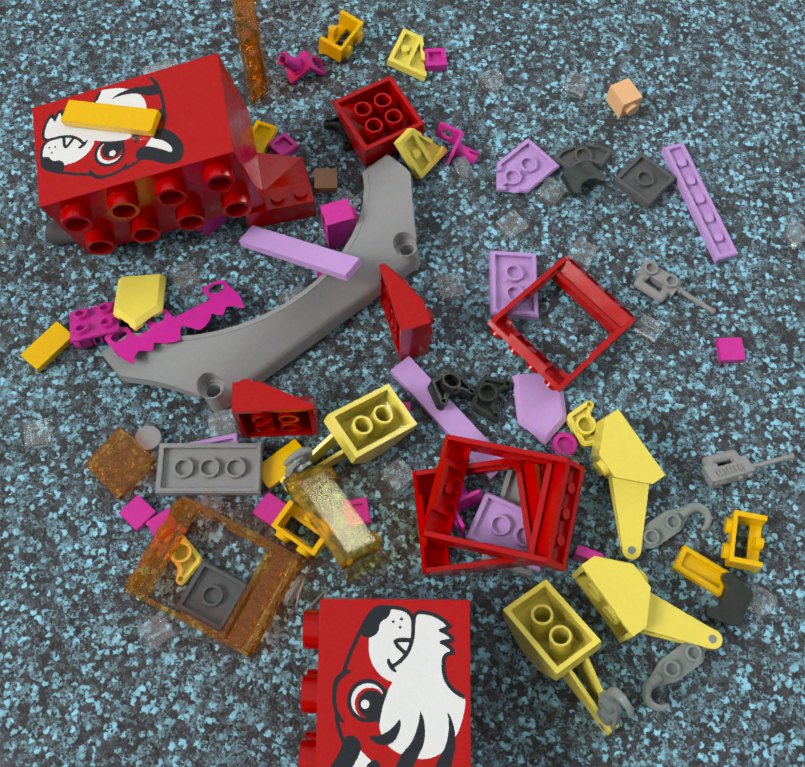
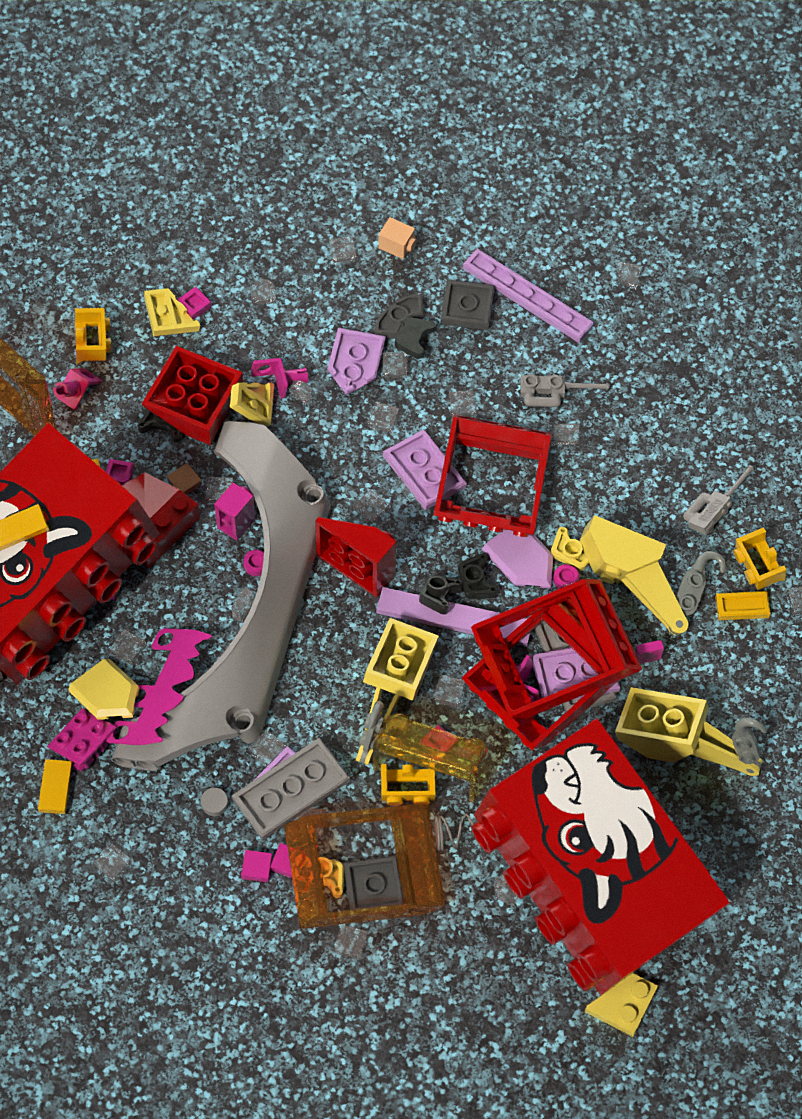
camera: 35 degrees left, 5 degrees down
(120, 463) = (208, 835): clear orange tile -> none
(268, 509) = (366, 788): dark pink tile -> none
(271, 412) = (312, 703): red slope -> none
(274, 466) = (347, 743): yellow tile -> none
(301, 253) = (223, 557): lavender tile -> none
(629, 608) = (705, 667): light yellow slope -> none
(730, 350) = (644, 411): dark pink tile -> none
(732, 603) = (782, 612): pearl dark grey piece -> none

